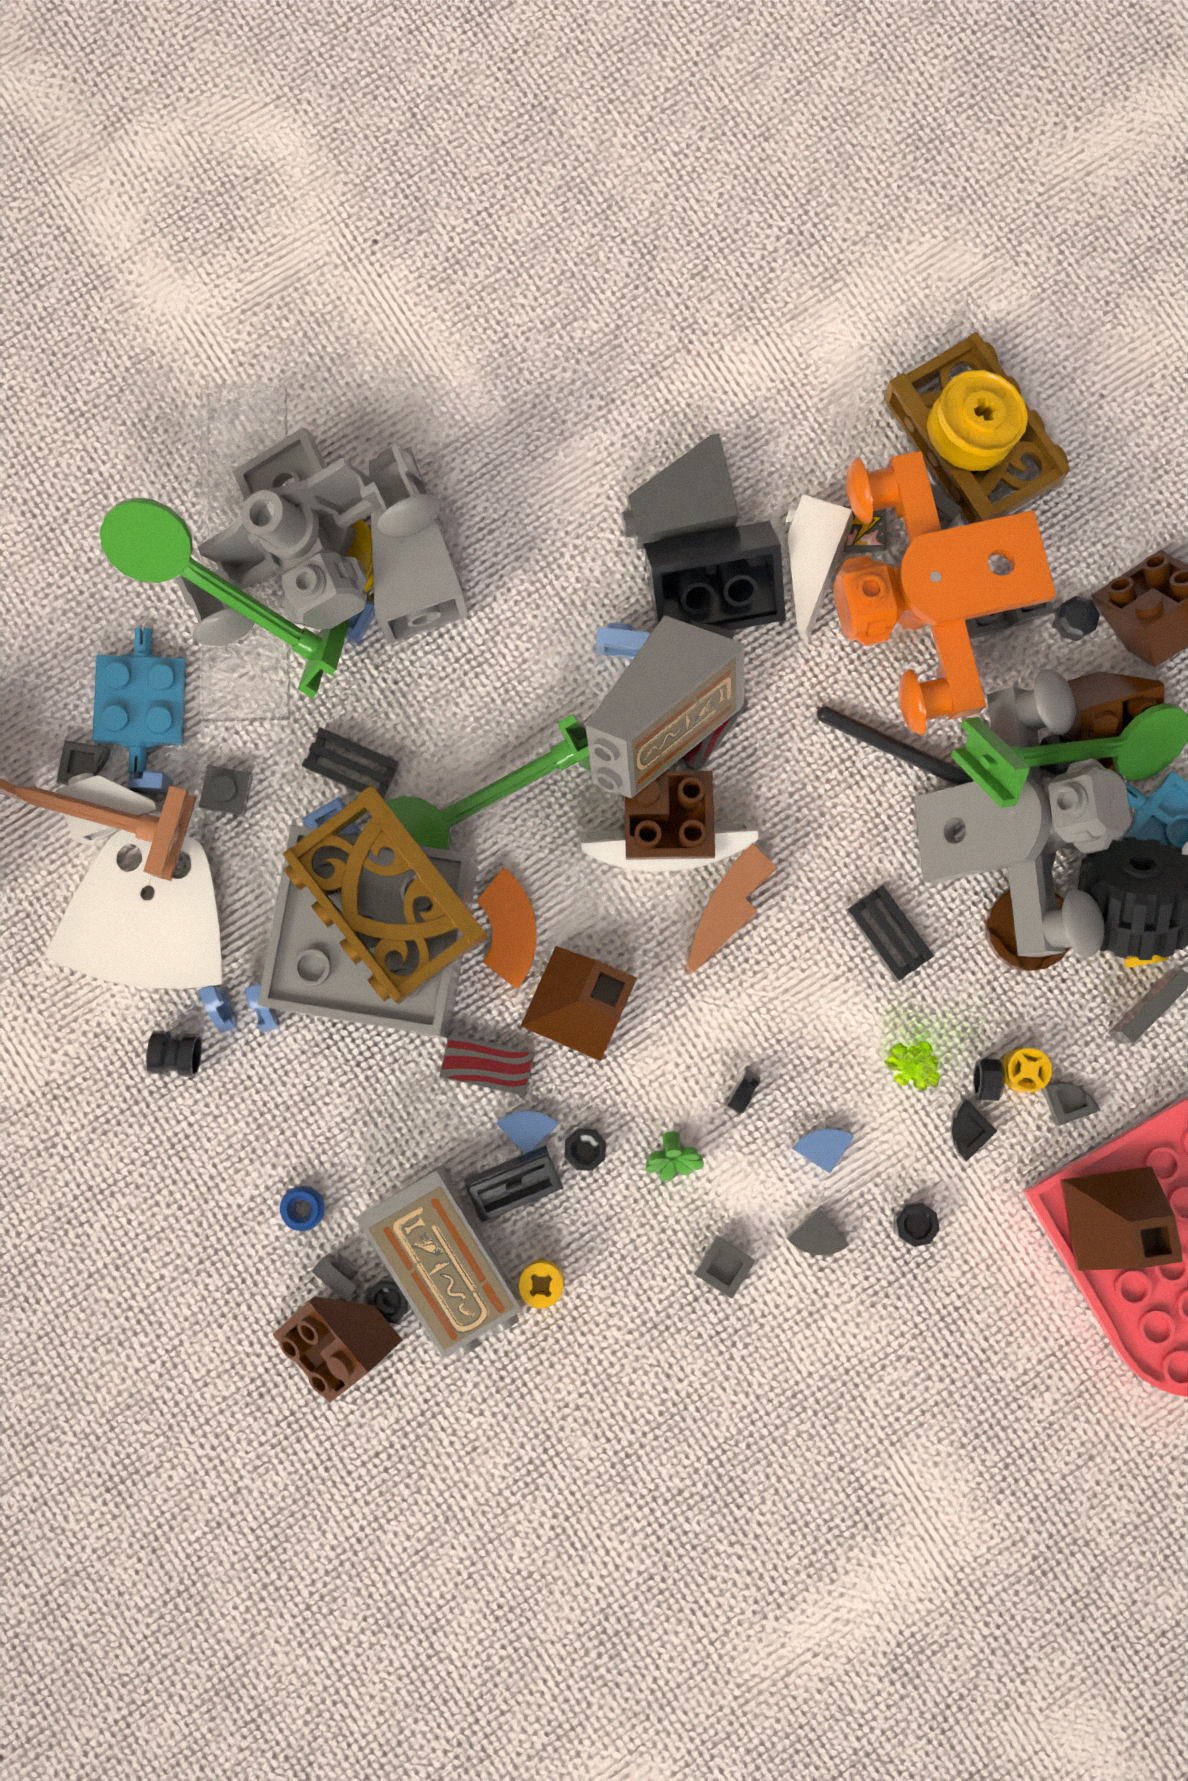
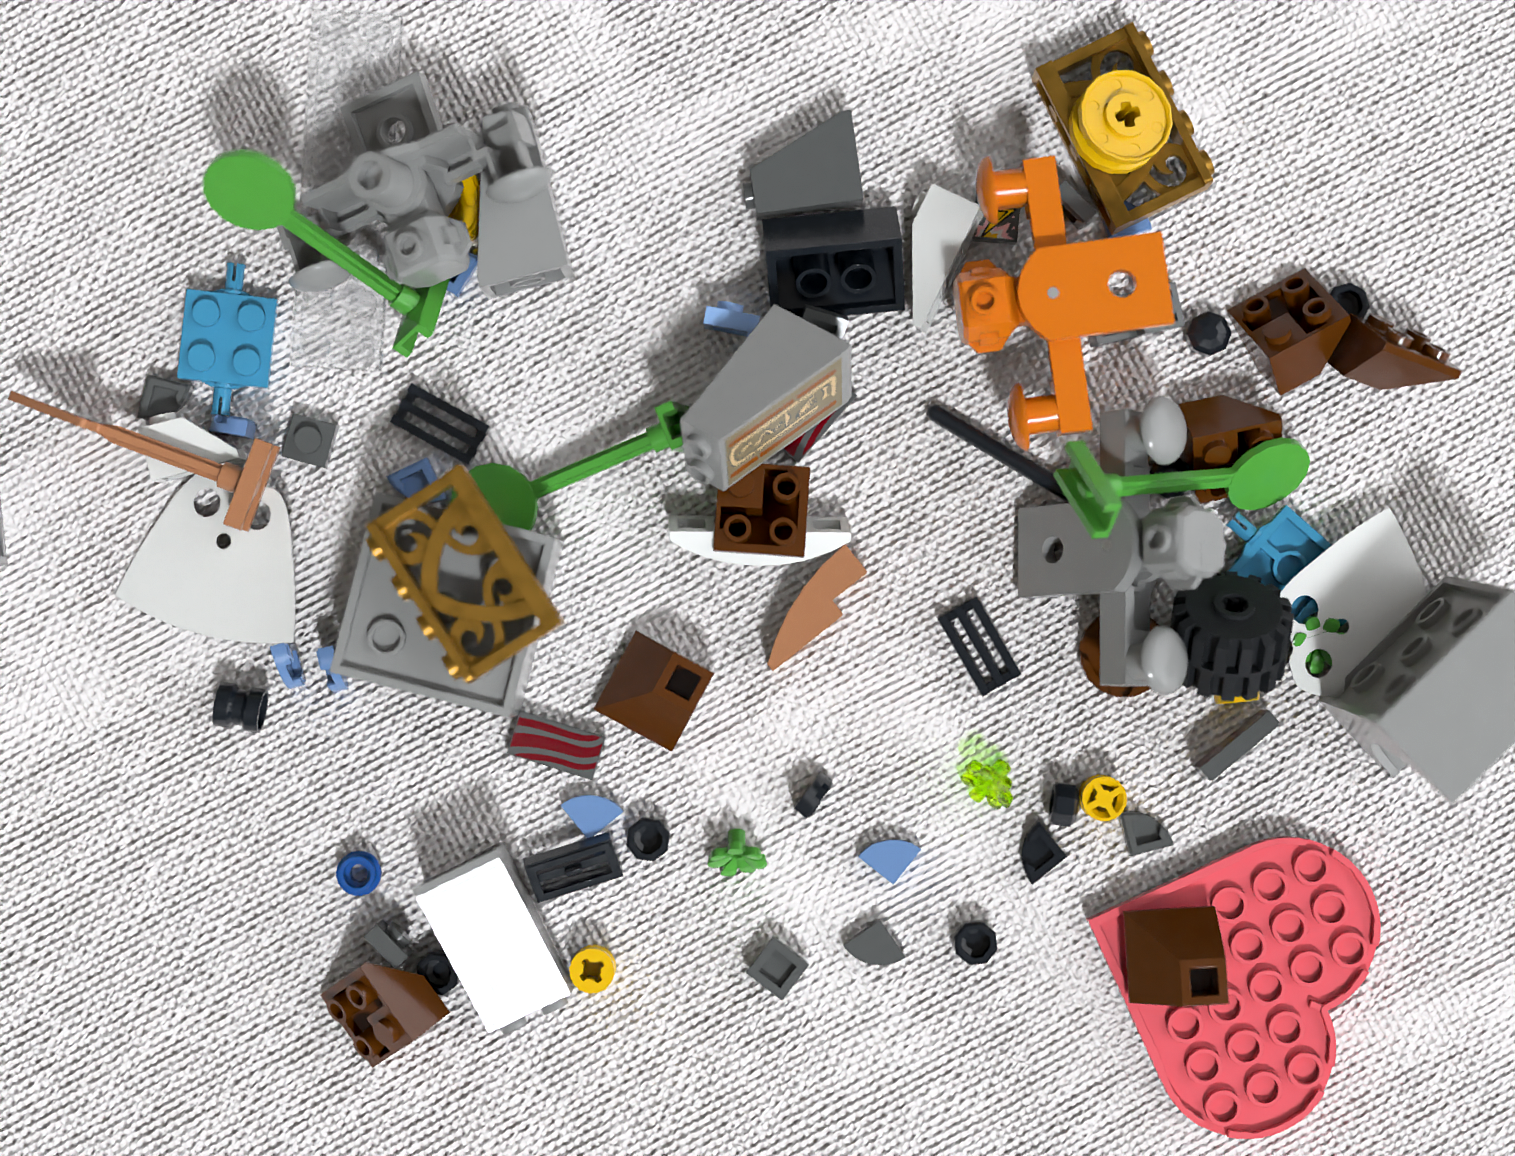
camera: 10 degrees right, 5 degrees up
(512, 928) = (593, 606): orange tile -> none

